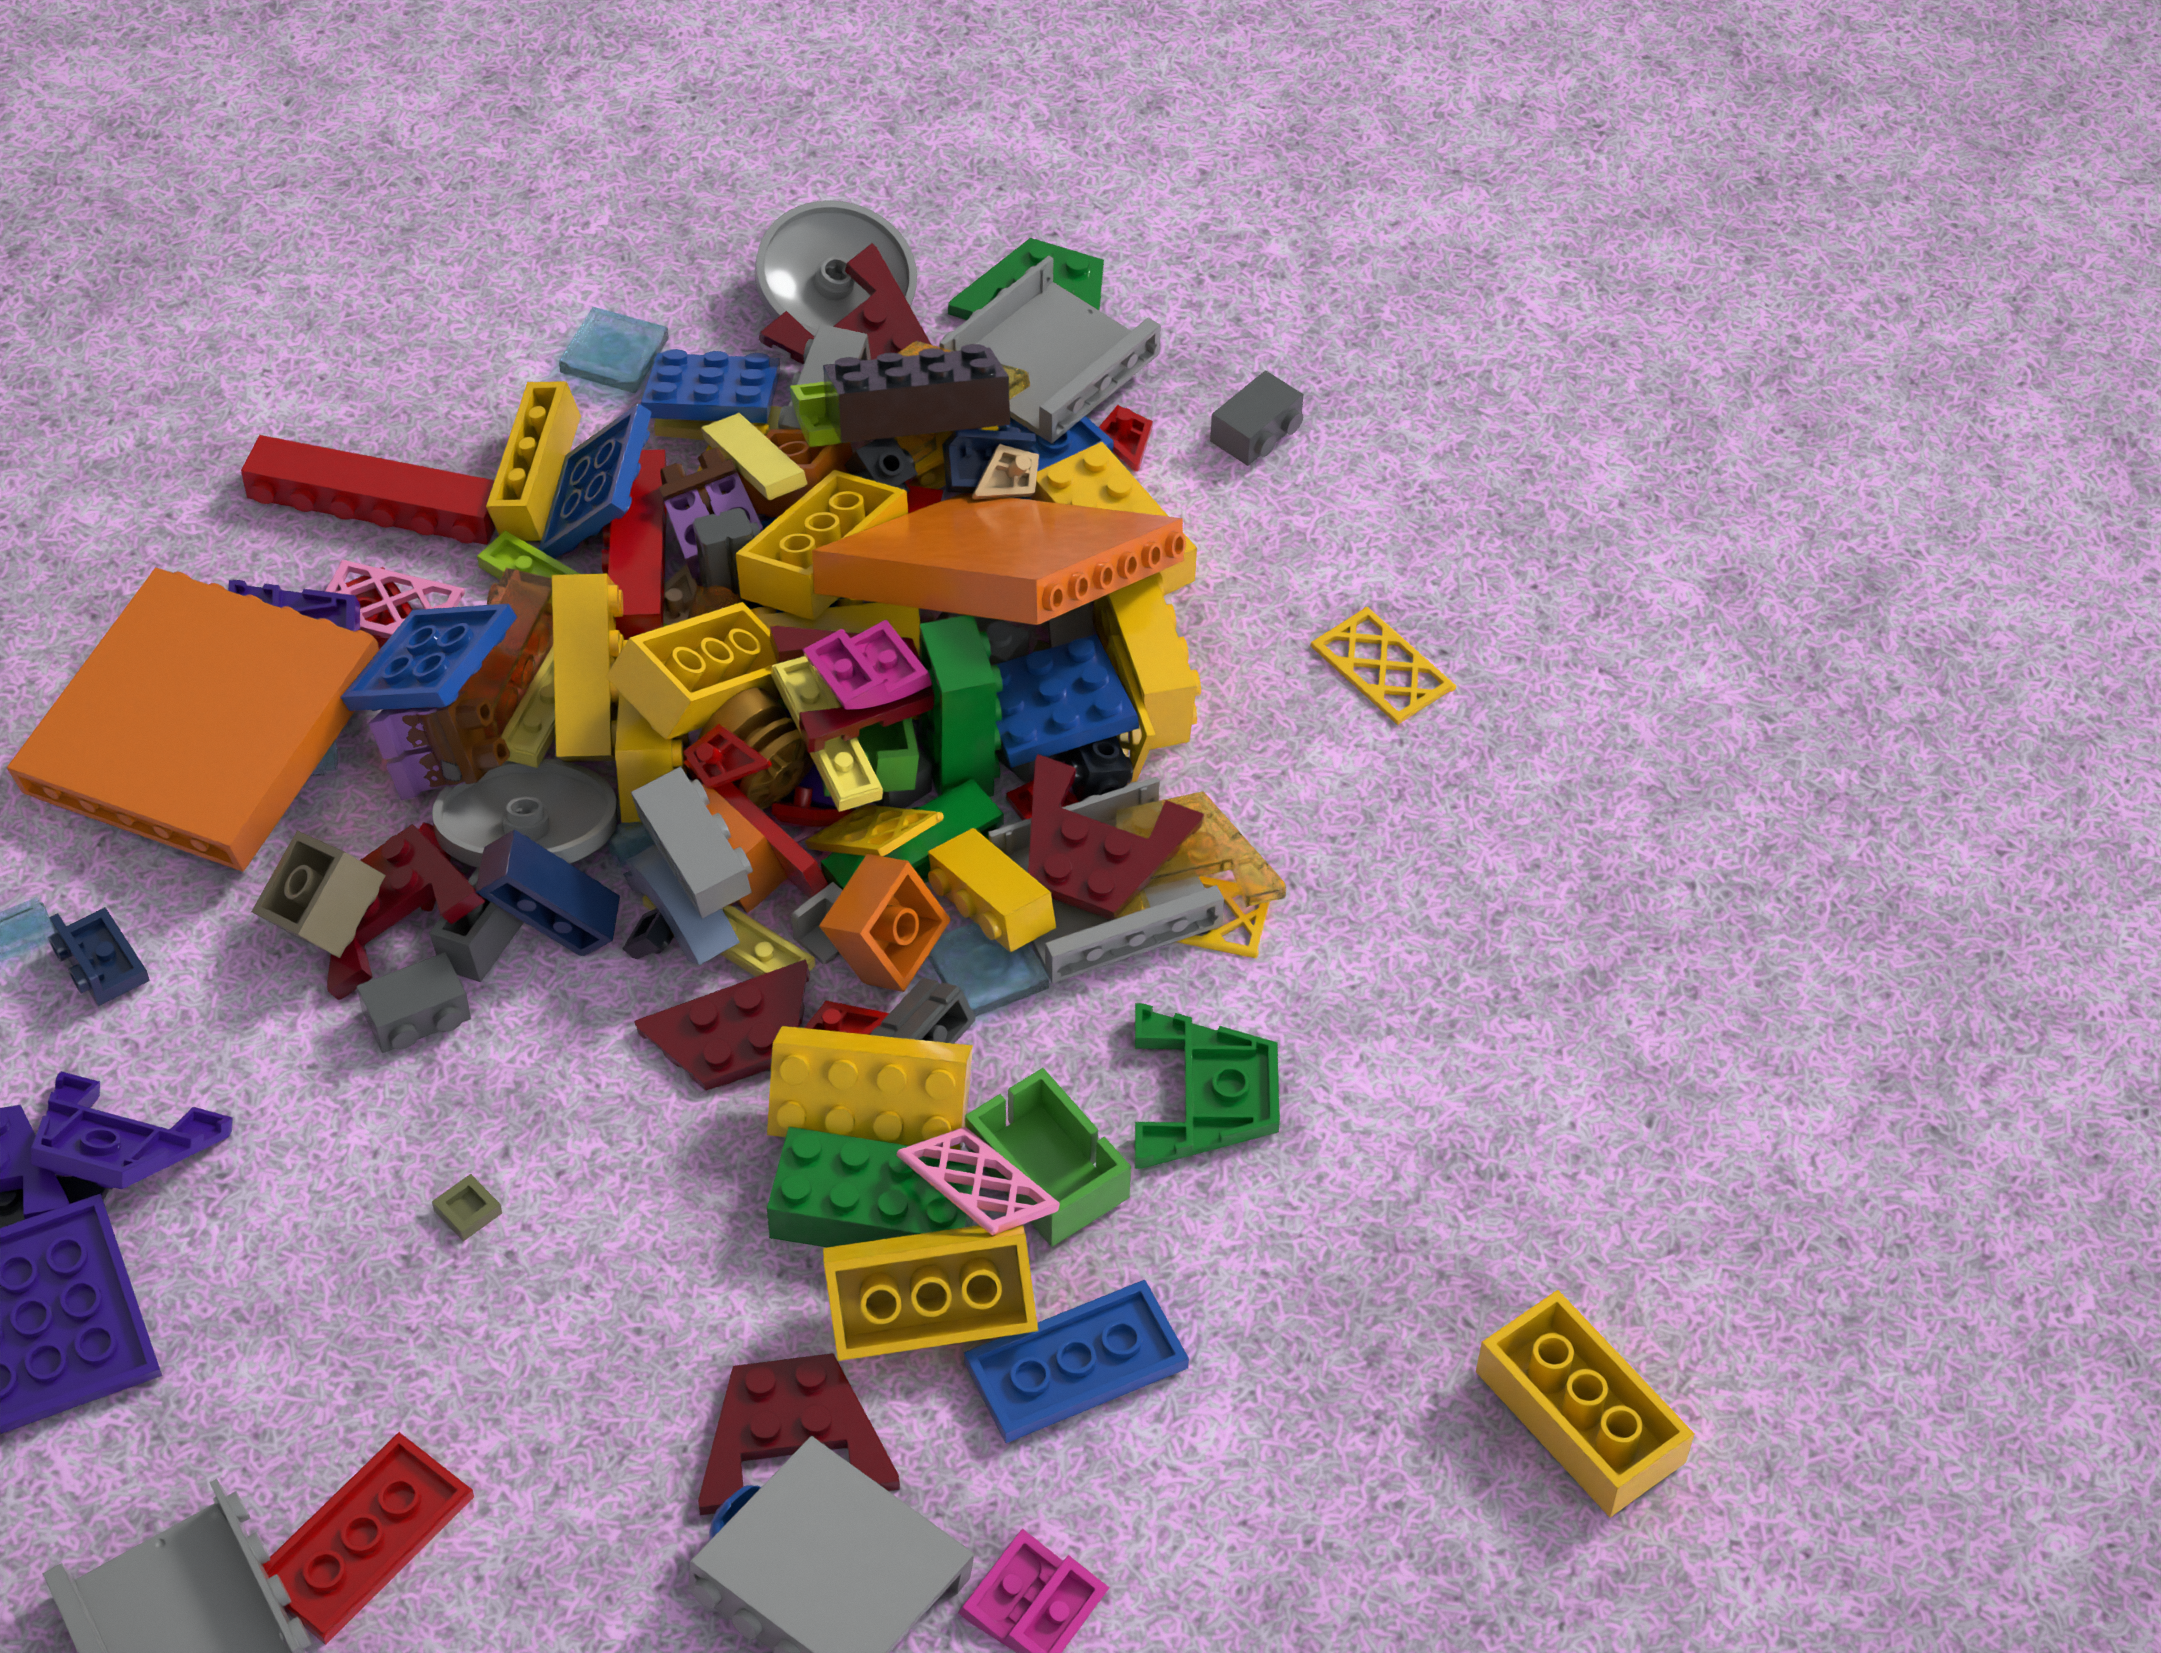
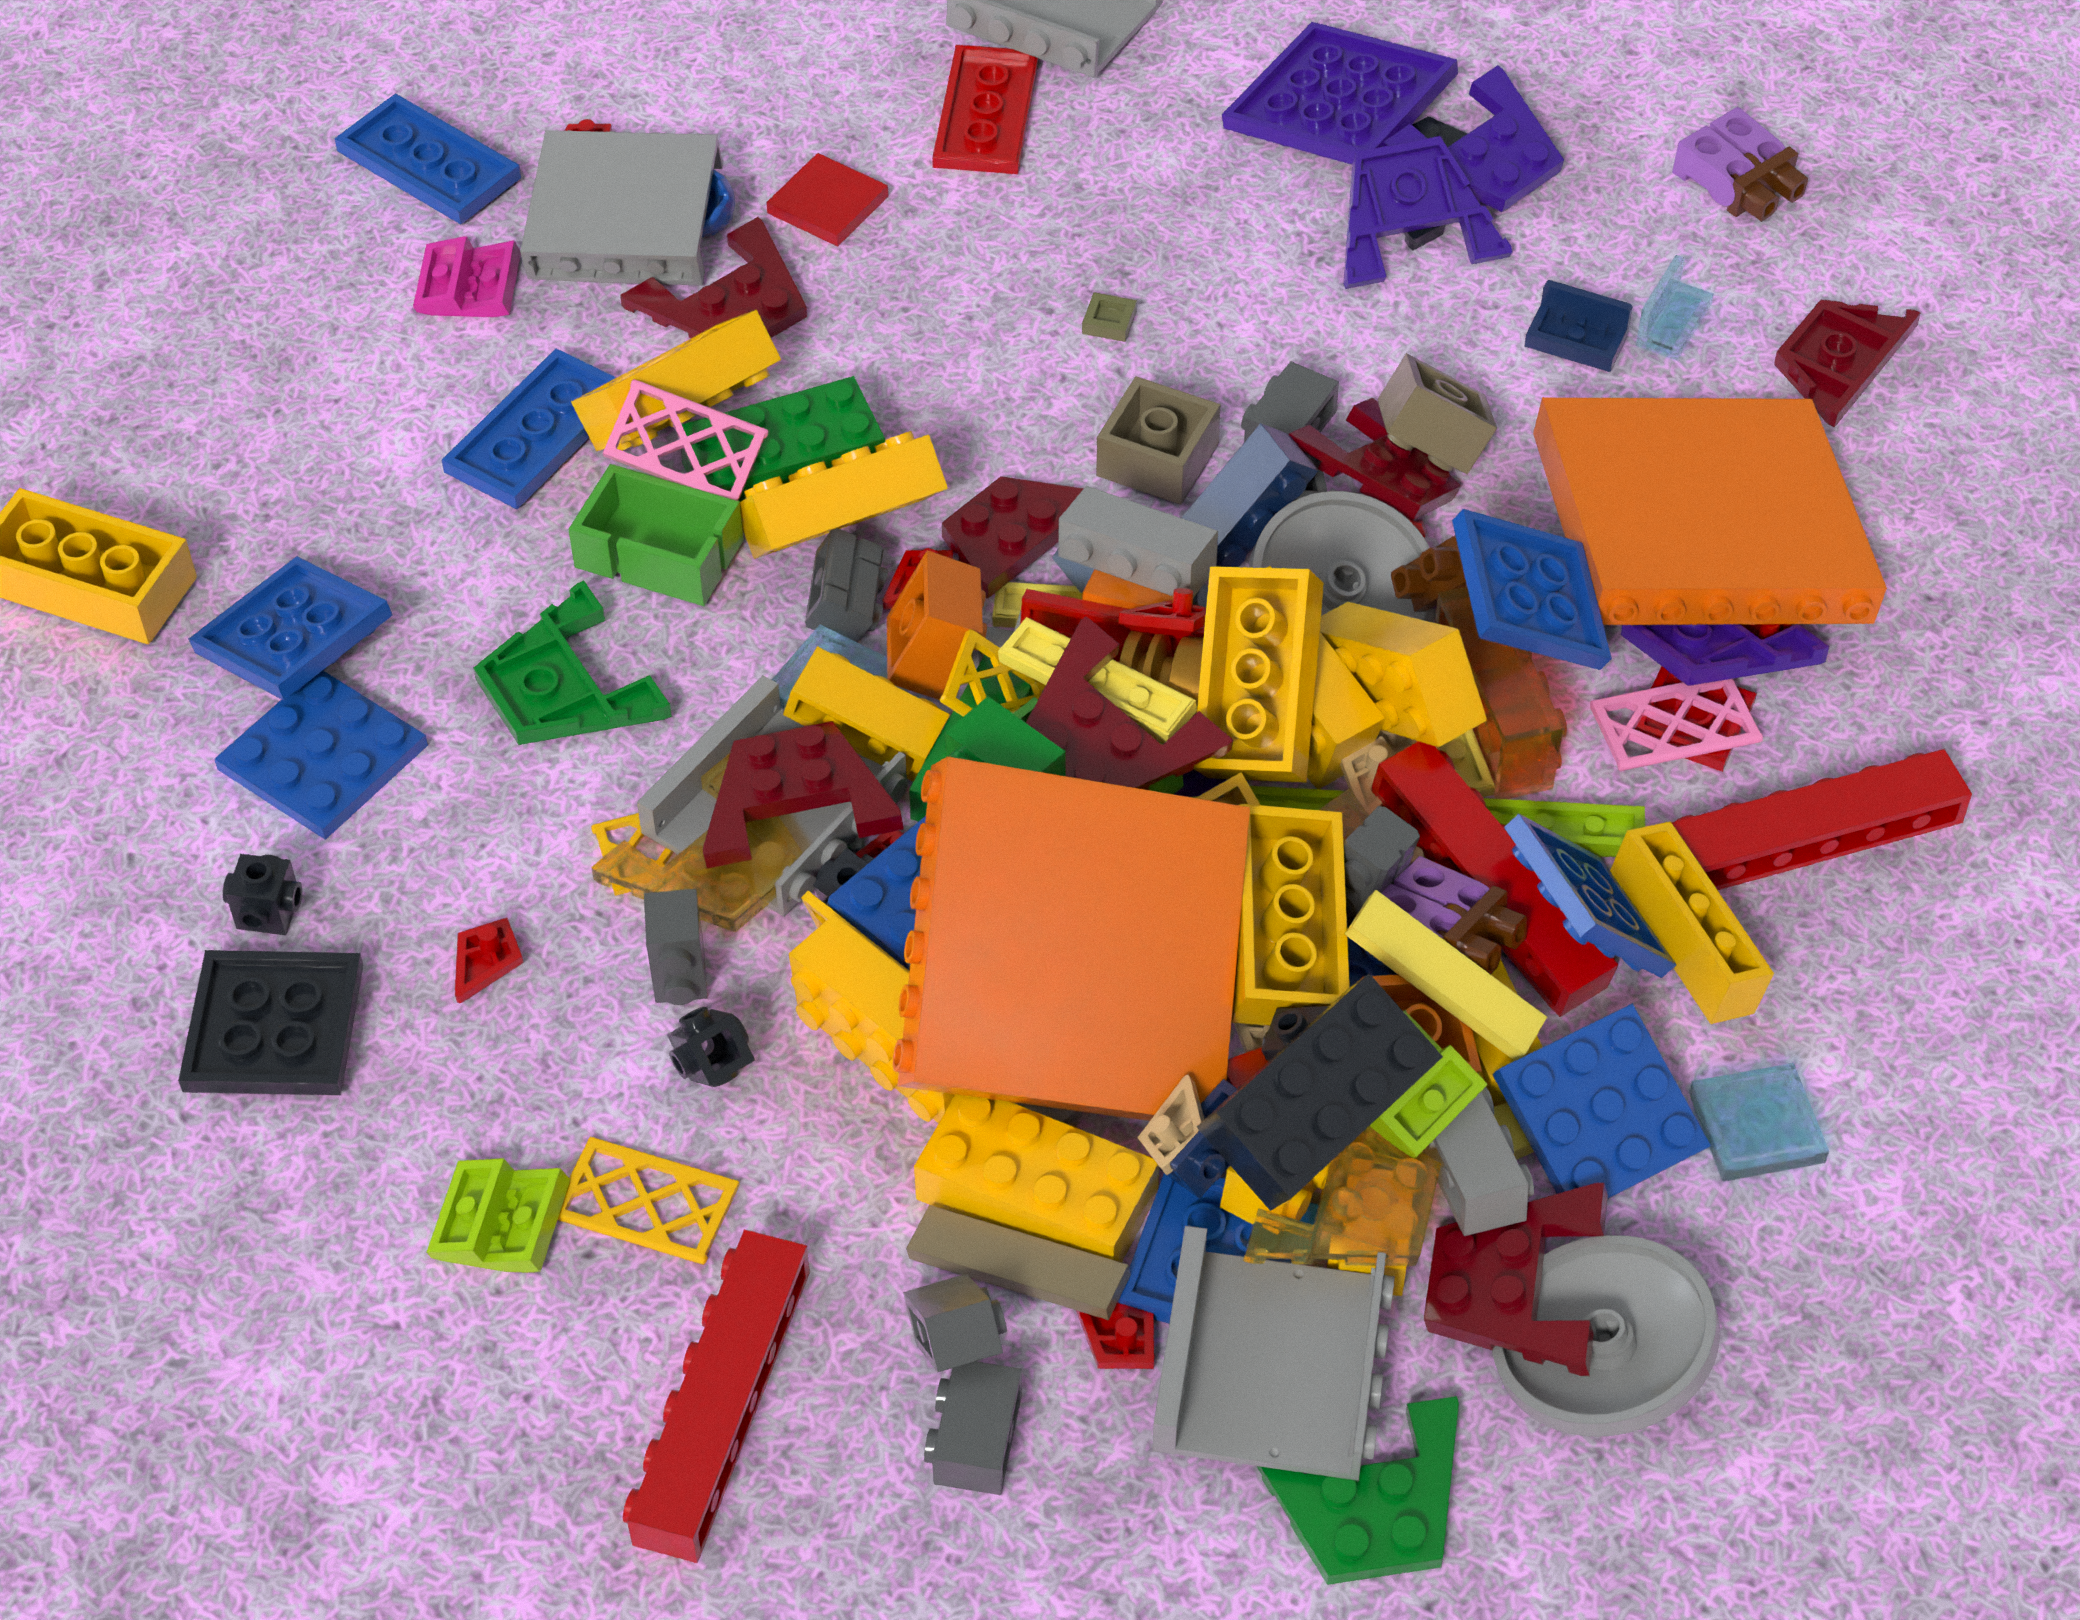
camera: 150 degrees right, 0 degrees up
(551, 1022) = (1158, 440): none -> dark tan brick
(611, 1502) = (827, 199): none -> red tile
(868, 667) = (1091, 708): dark pink slope -> none
(1164, 487) = (1019, 1262): none -> dark tan tile
(1235, 455) = (955, 1322): none -> dark grey brick
(1262, 781) = (675, 946): none -> dark grey brick
(1275, 697) = (725, 1049): none -> black brick
(1404, 883) = (484, 957): none -> red piece
(1407, 511) = (718, 1396): none -> red brick
(1420, 1240) = (290, 627): none -> blue plate
(1446, 1130) = (321, 753): none -> blue plate
(1494, 696) = (498, 1216): none -> lime slope
(1558, 1002) = (262, 894): none -> black brick
(1595, 908) = (271, 1023): none -> black plate

